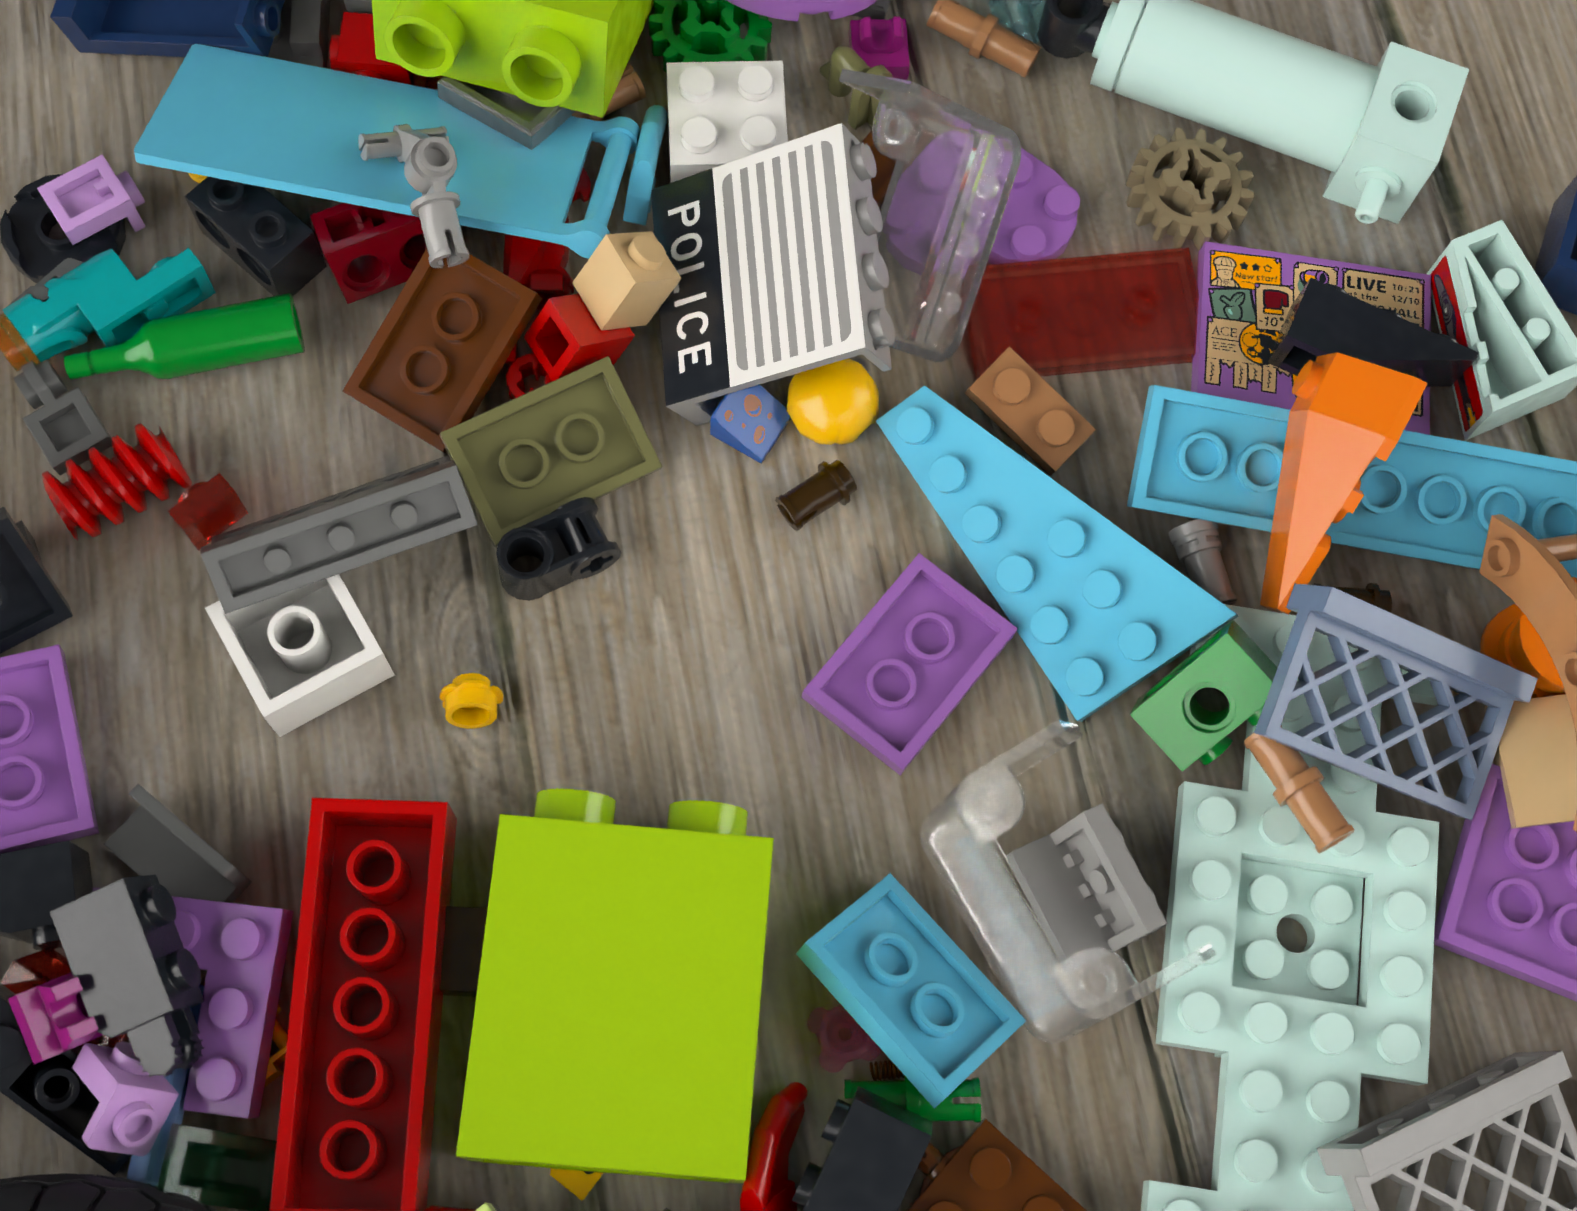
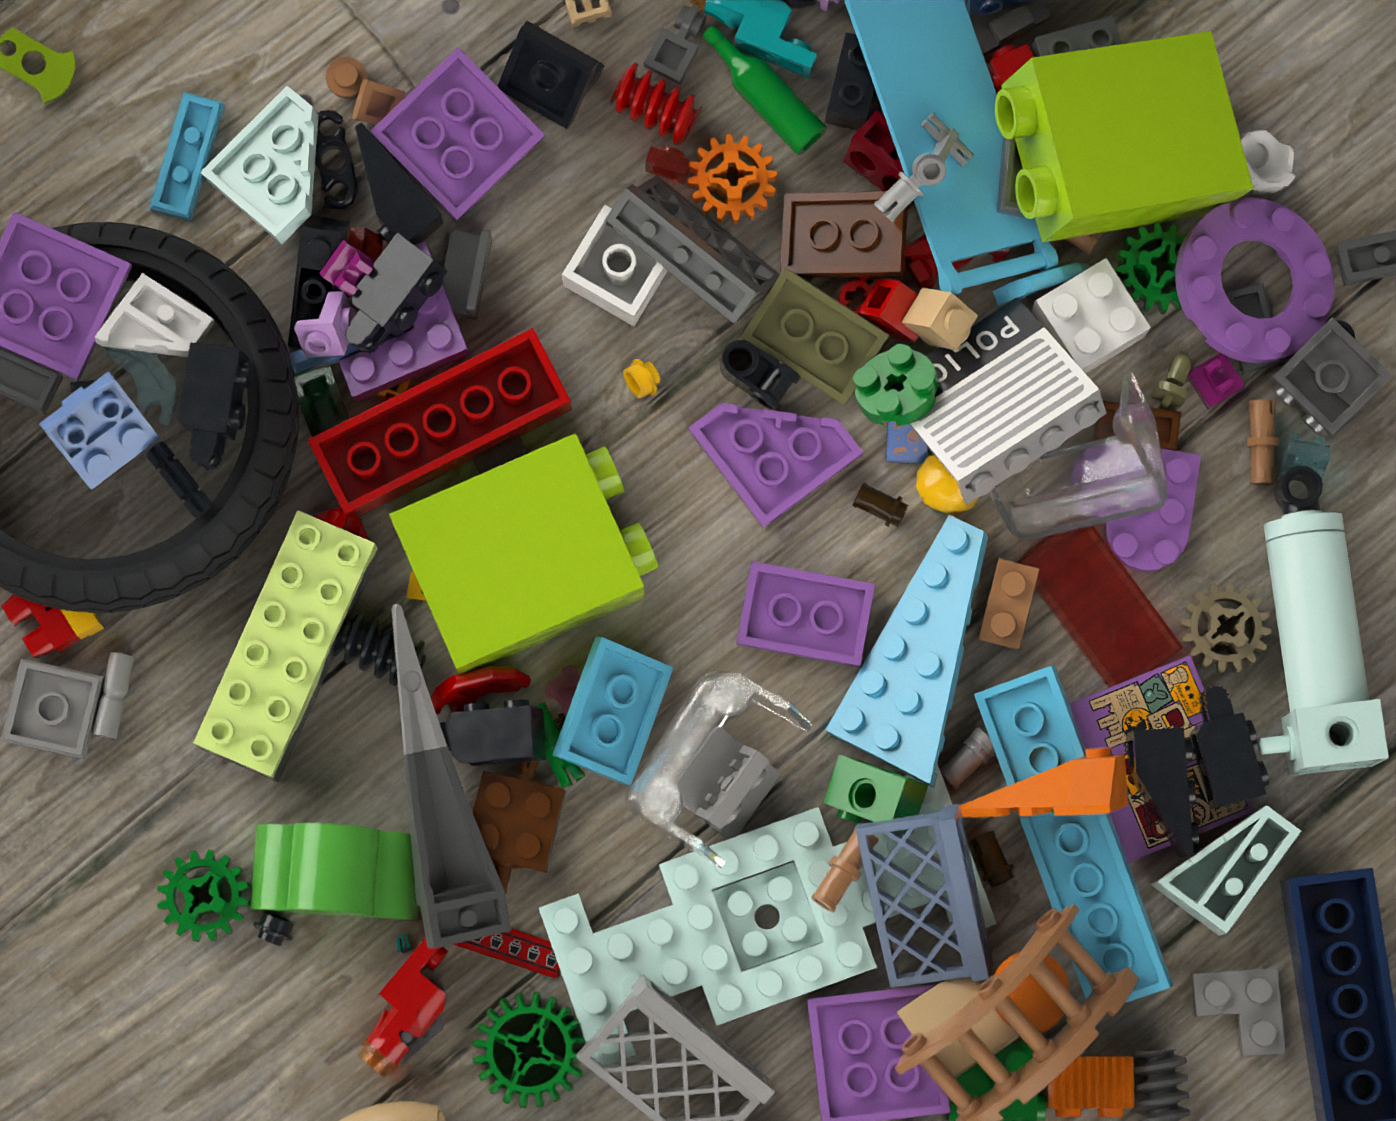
camera: 65 degrees right, 10 degrees up
(267, 425) = (716, 179): none -> orange gear
(658, 360) = (892, 367): none -> plate
(674, 591) = (773, 455): none -> medium lavender plate
(1363, 254) = (1226, 751): none -> black hinge

